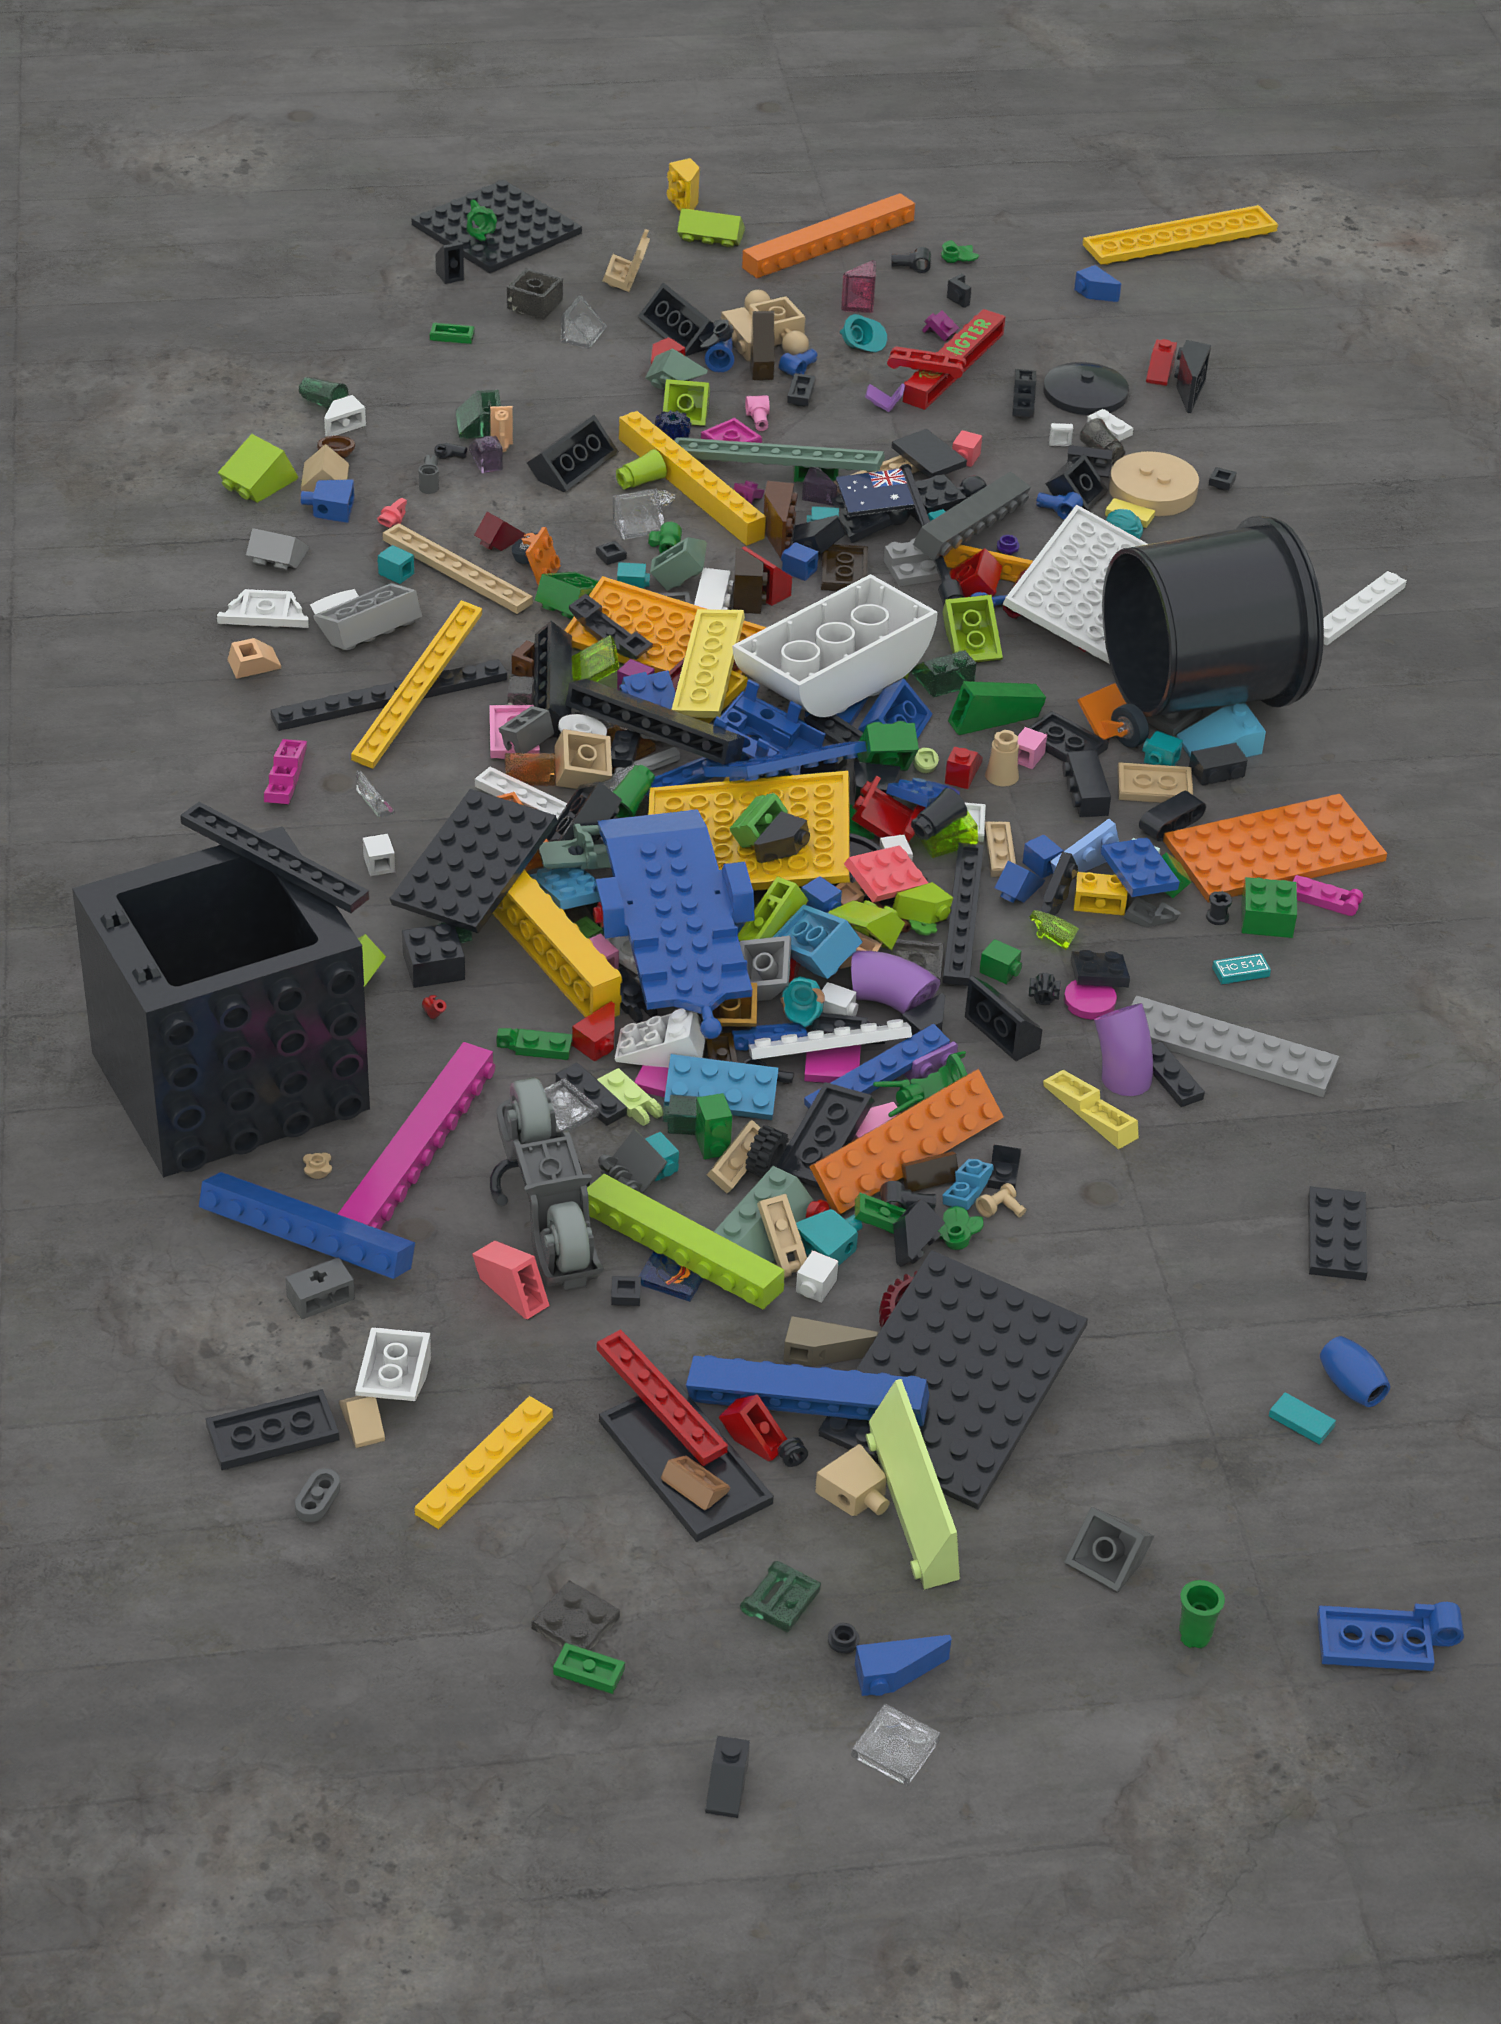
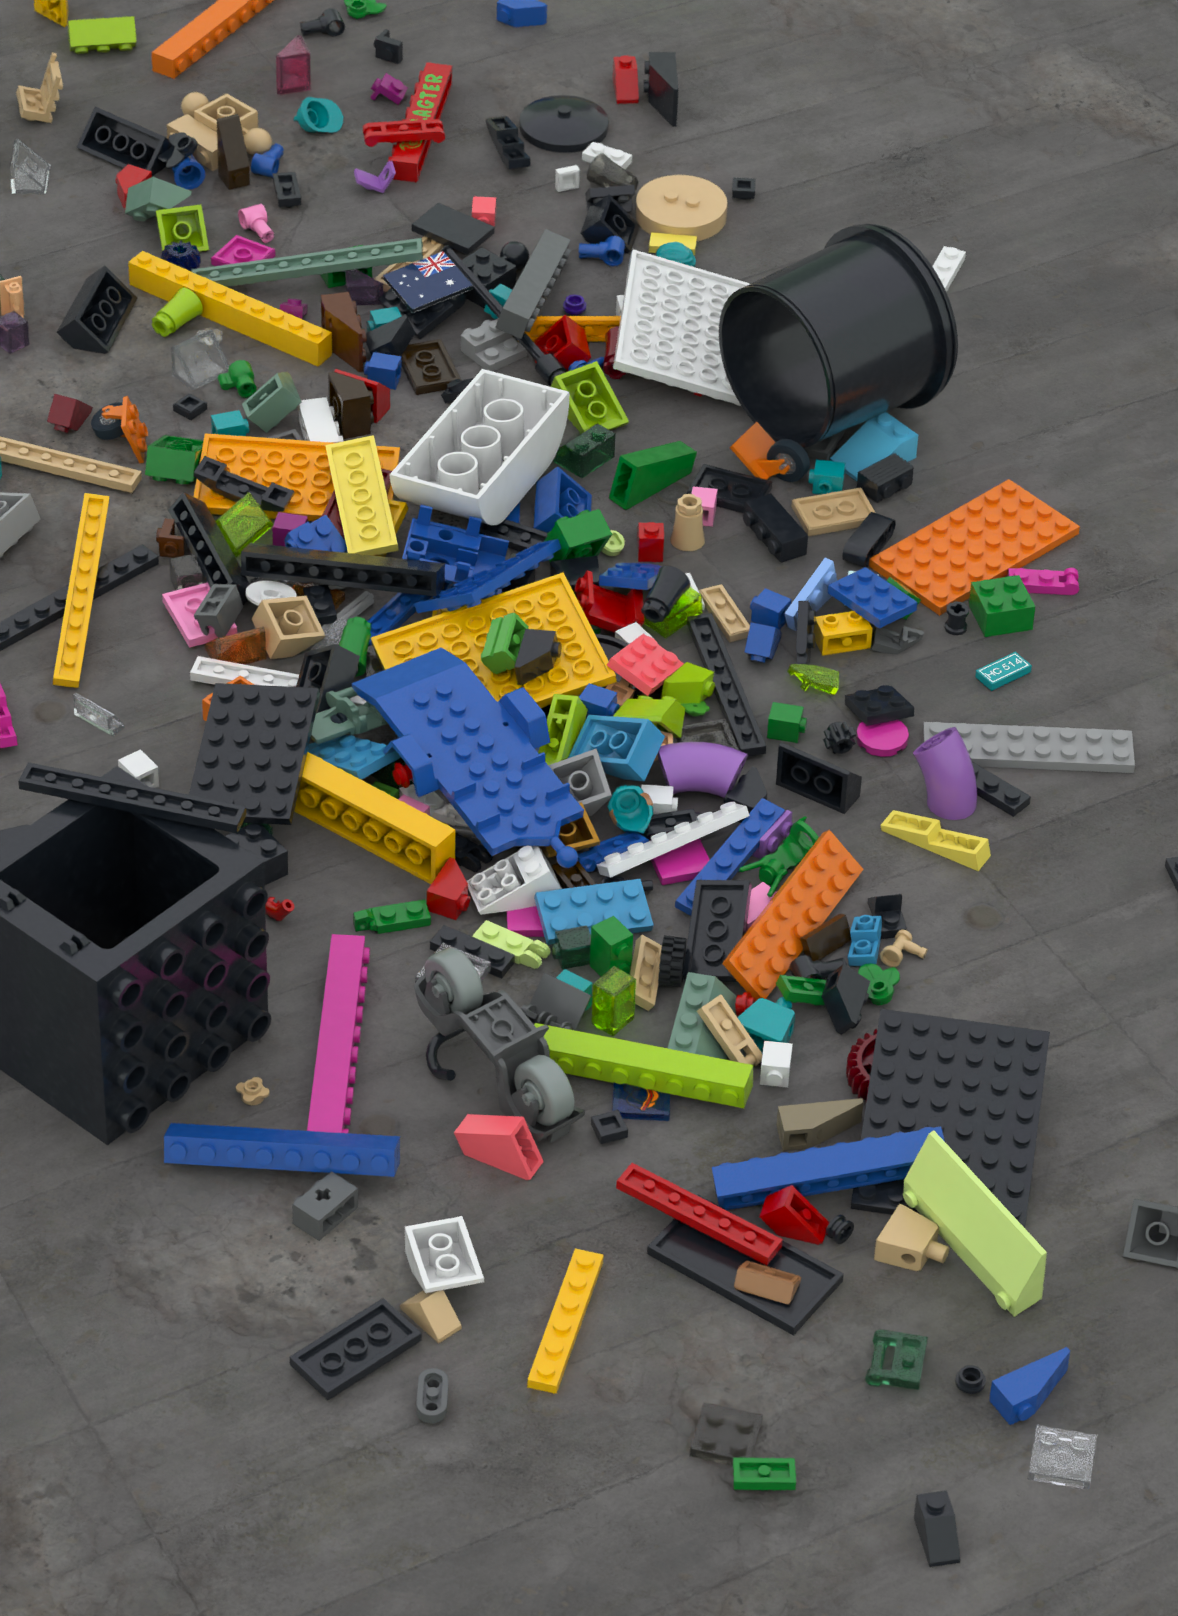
camera: 20 degrees left, 0 degrees up
(689, 1174) = (613, 1001): none -> clear neon green brick

